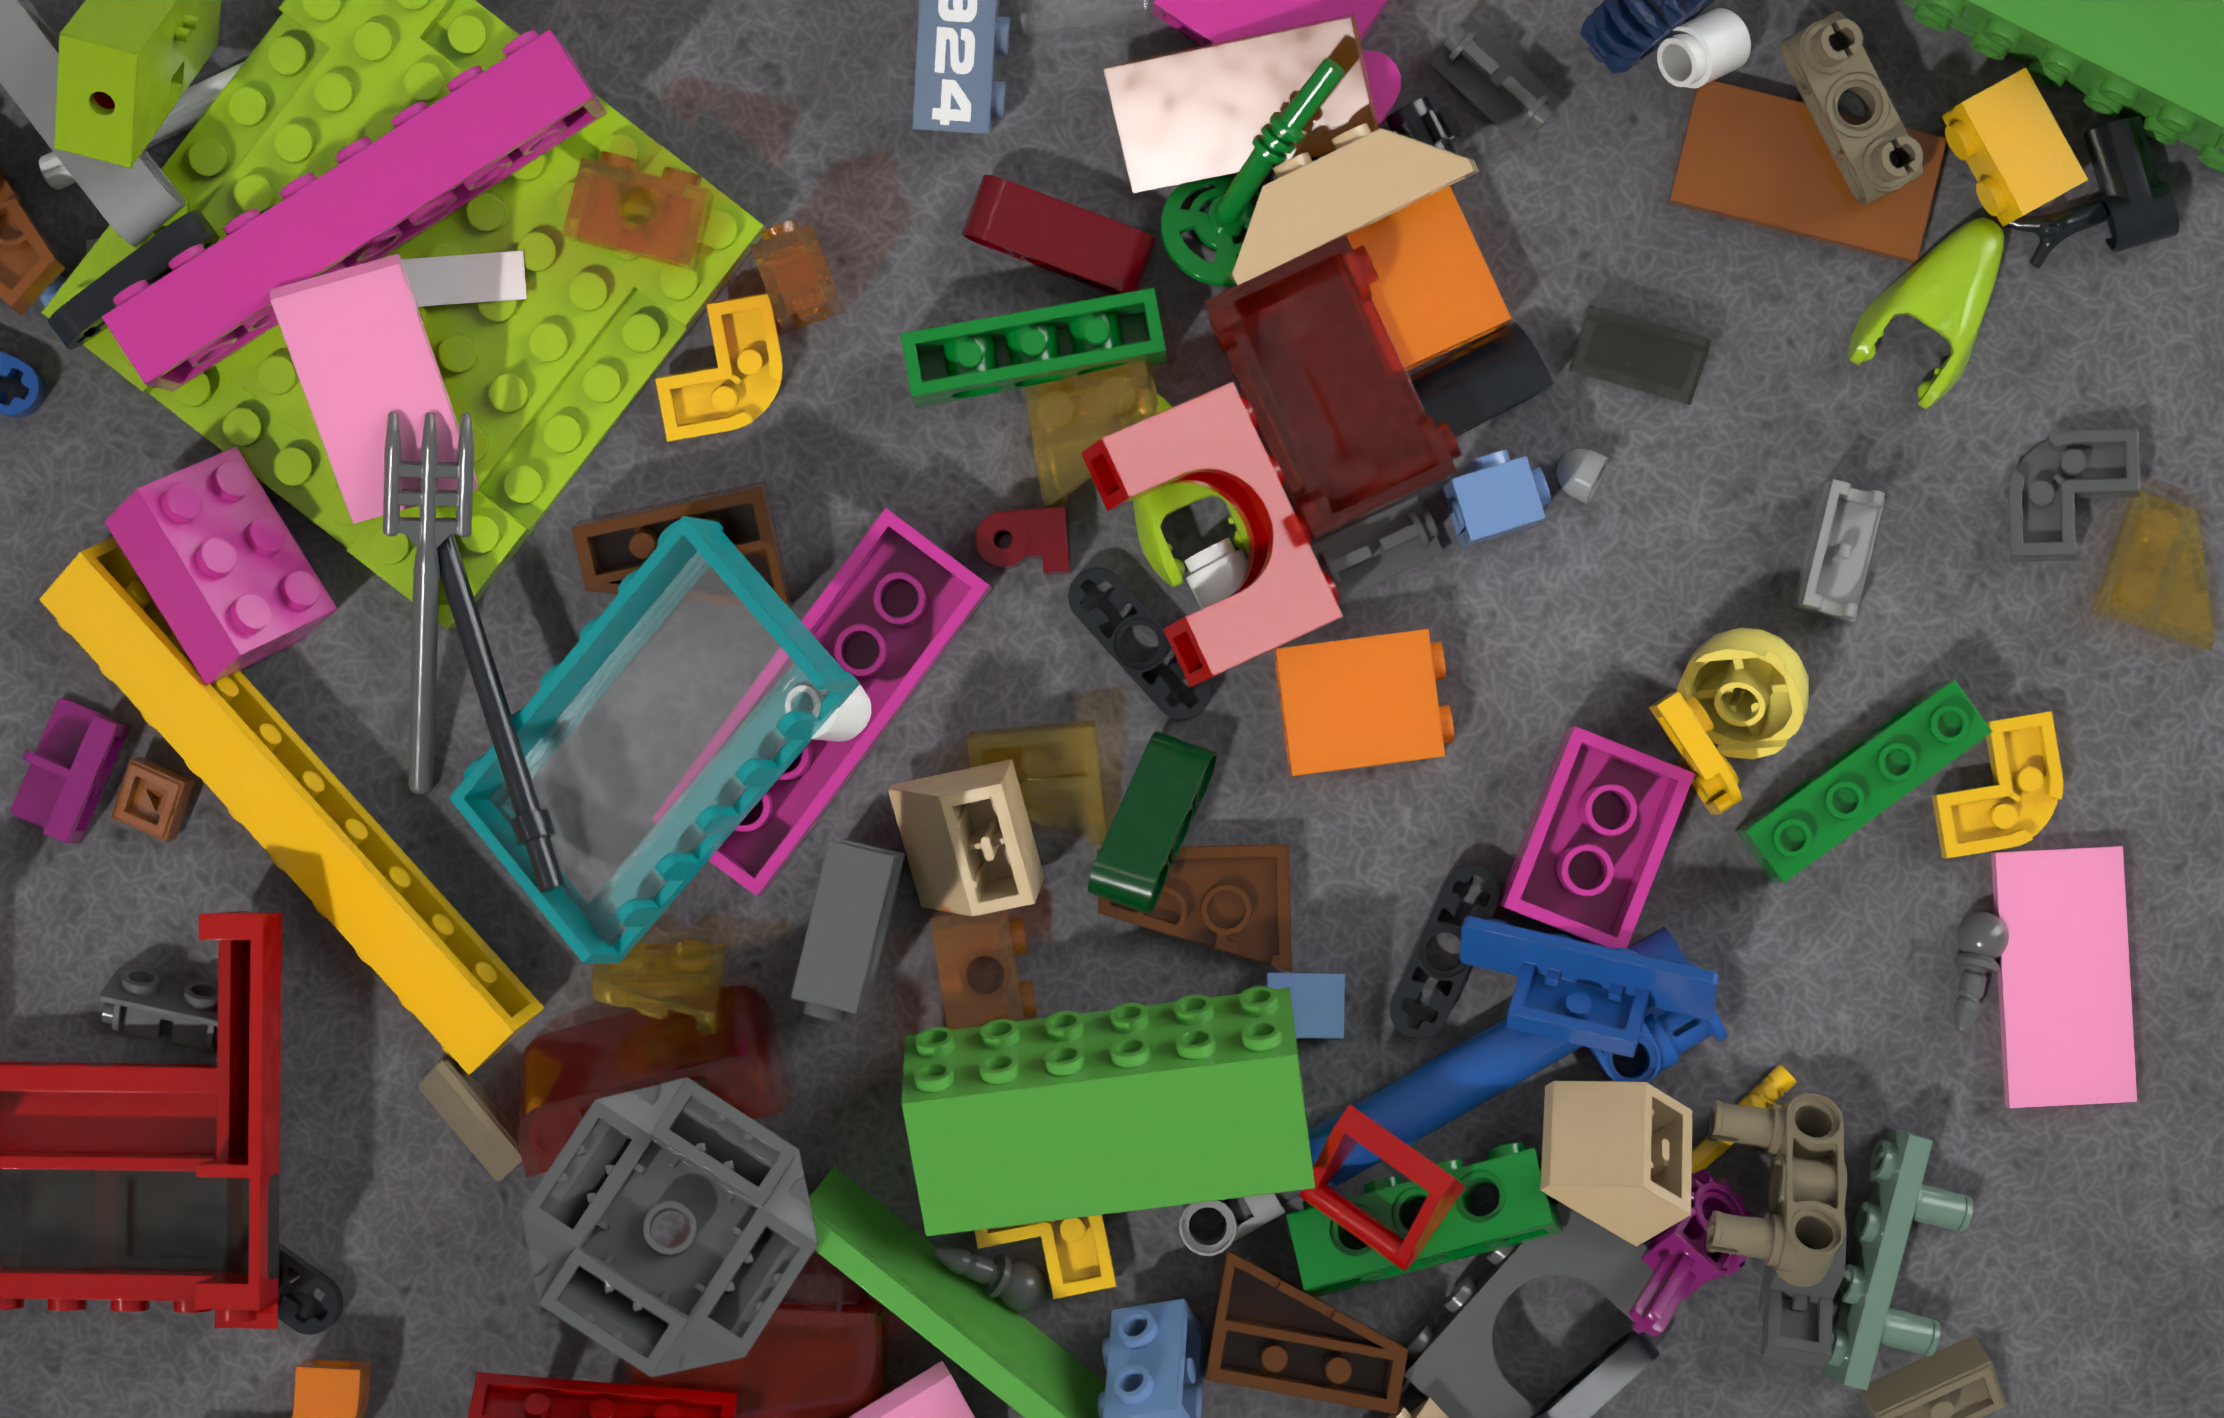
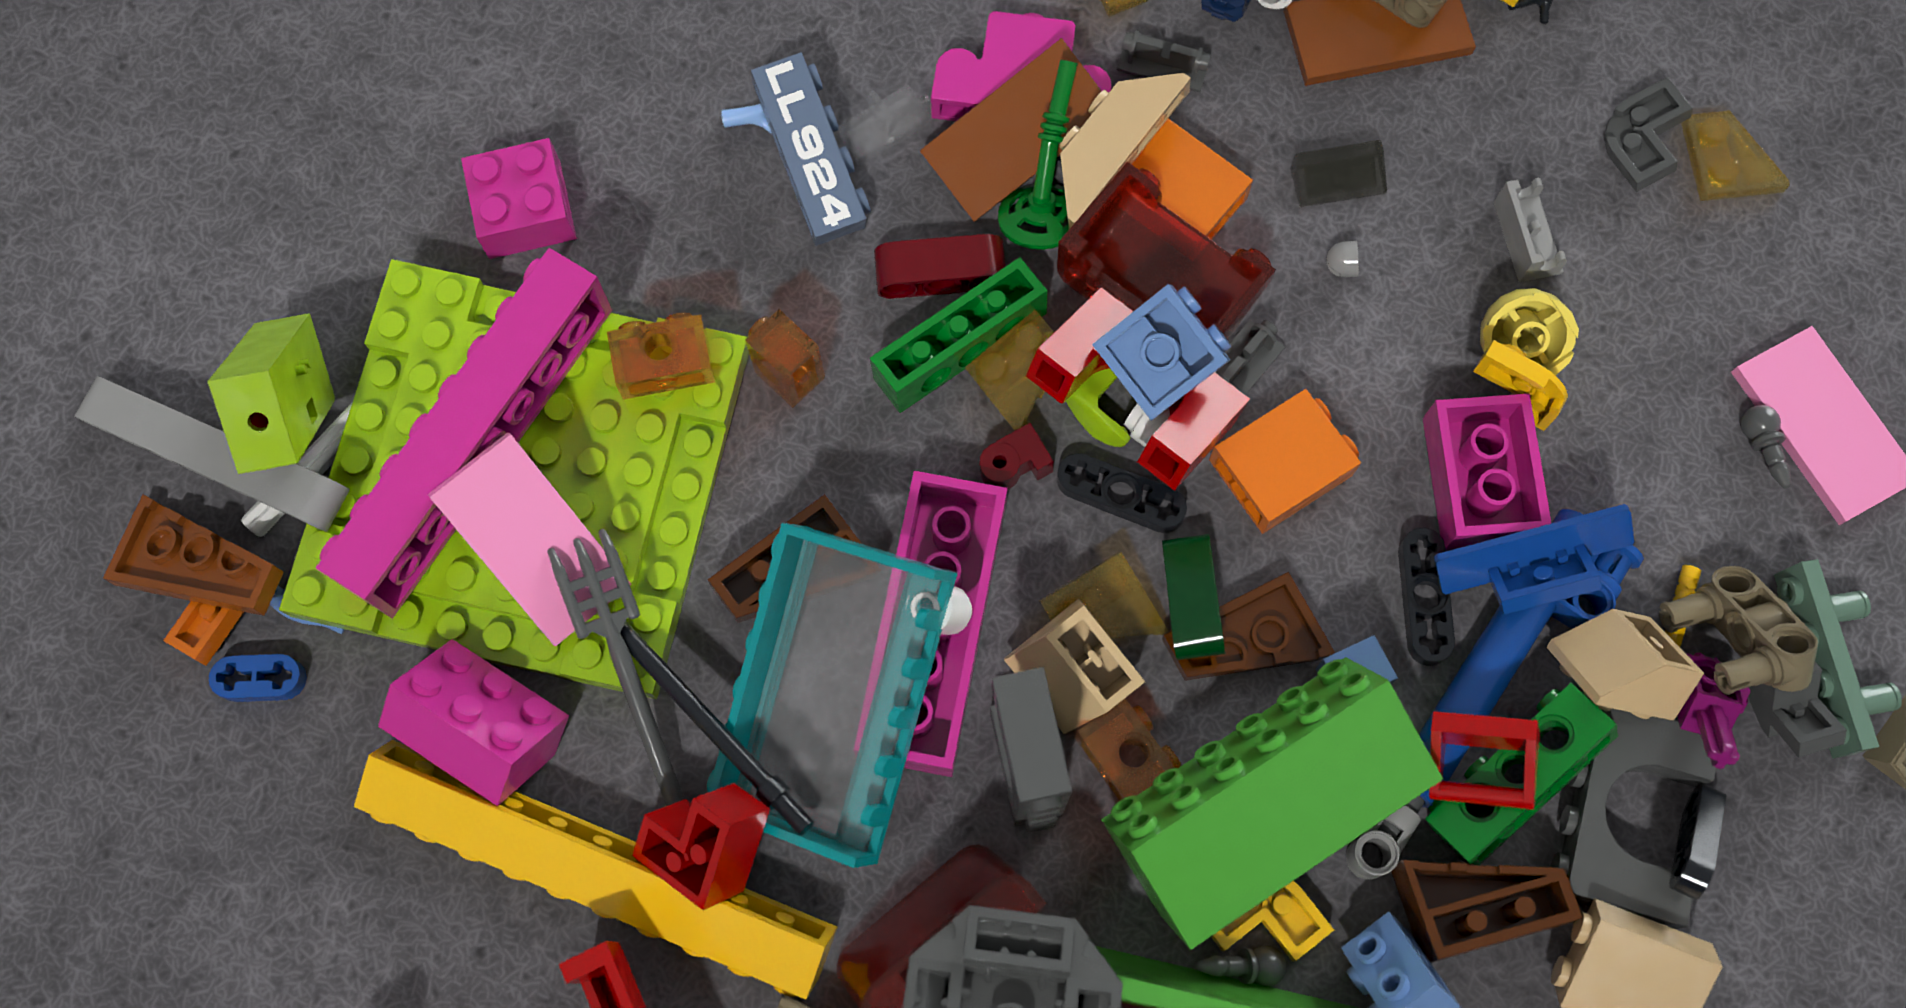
camera: 25 degrees left, 15 degrees down
(69, 770) = (424, 922): magenta panel -> none
(82, 315) = (309, 586): black beam -> none
(153, 799) = (493, 913): dark orange tile -> none
(426, 850) = (704, 844): none -> red brick
(466, 278) = (570, 451): white sticker -> none
(666, 977) = (909, 863): clear yellow wing -> none
(740, 385) = (777, 447): yellow plate -> none
(1256, 515) = (1163, 350): none -> medium blue plate
(1482, 380) = (1259, 222): black brick -> none
(1495, 498) = (1304, 290): medium blue brick -> none
(1863, 781) = (1630, 359): green brick -> none
(1944, 292) = (1506, 54): lime animal -> none
(2023, 793) = (1730, 324): yellow plate -> none

